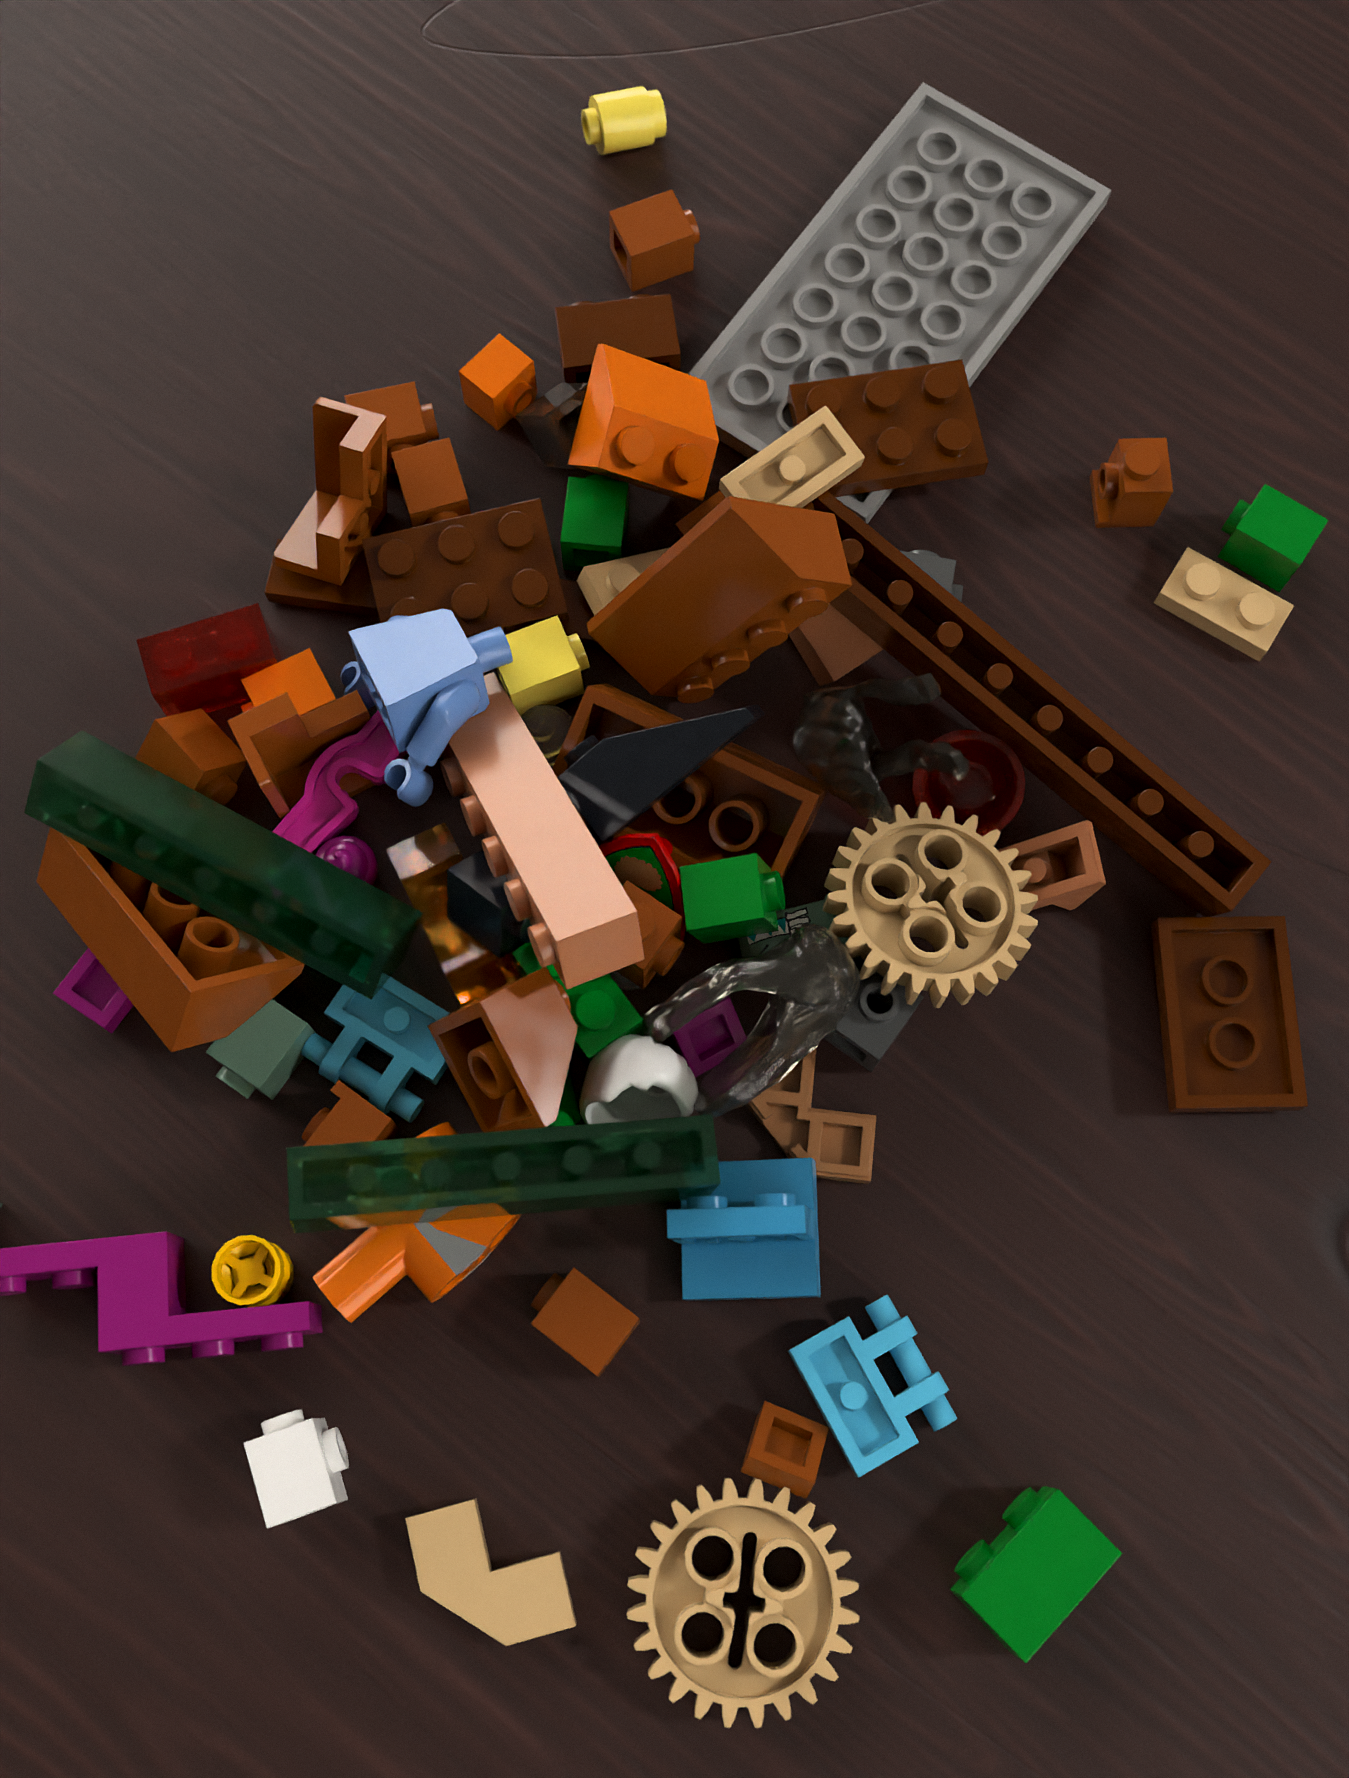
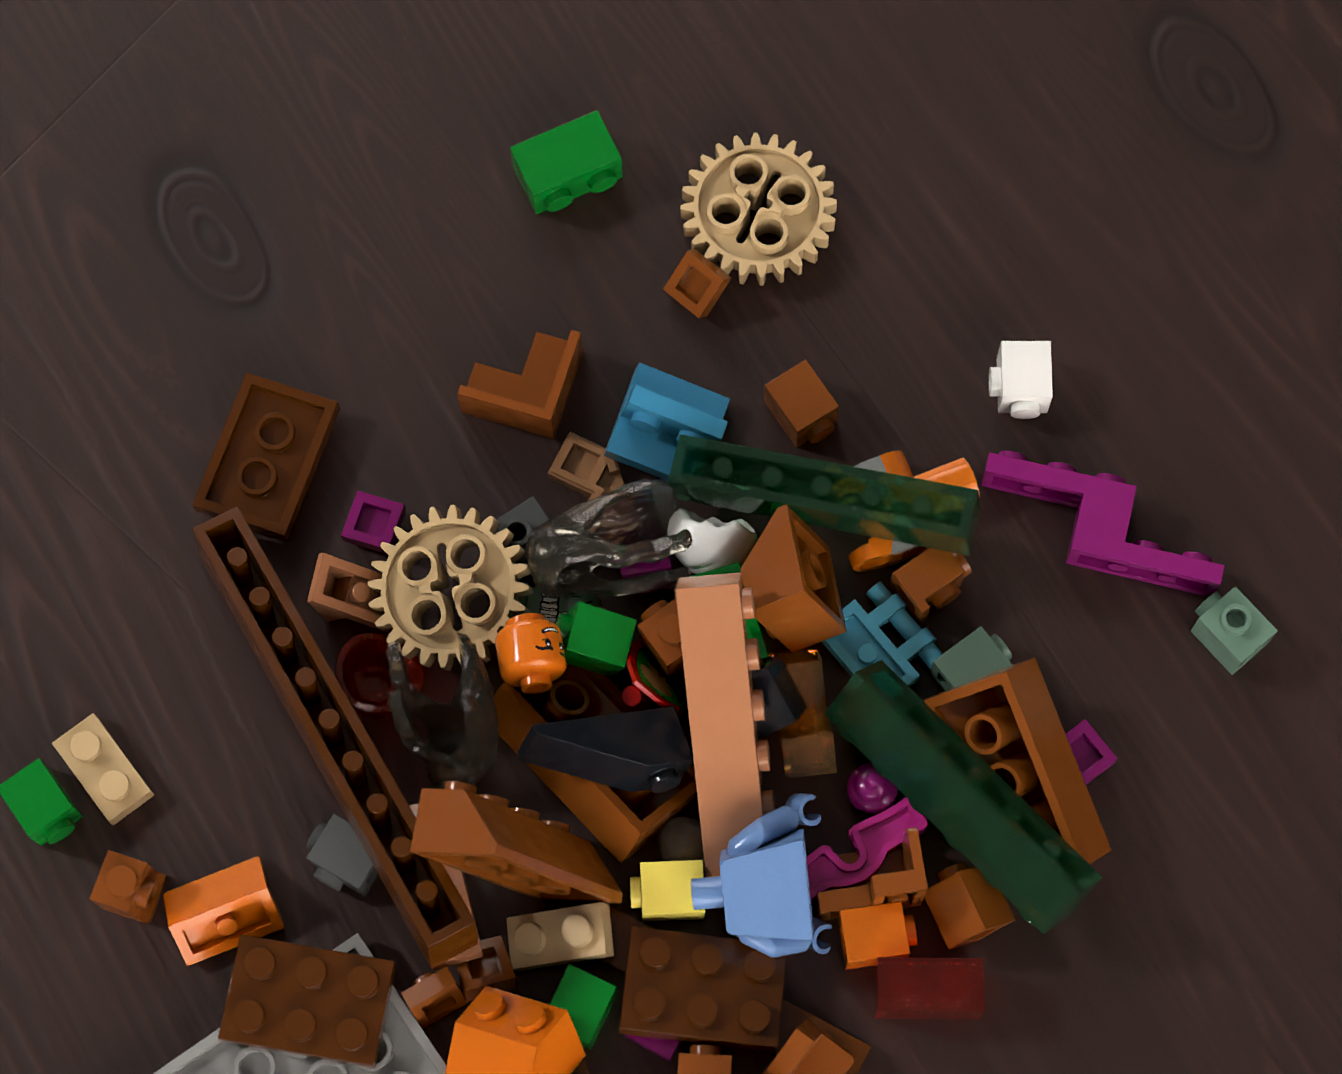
camera: 155 degrees left, 0 degrees up
(241, 1266) = (1025, 503): yellow wheel -> none
(503, 1602) = (911, 261): tan tile -> none
(796, 834) = (530, 652): none -> orange head
(797, 464) = (425, 907): tan plate -> none
(854, 1395) = (638, 301): medium azure plate -> none
(938, 1206) = (528, 400): none -> dark orange panel
(1024, 502) = (220, 907): none -> orange panel
(1060, 976) = (372, 521): none -> magenta plate

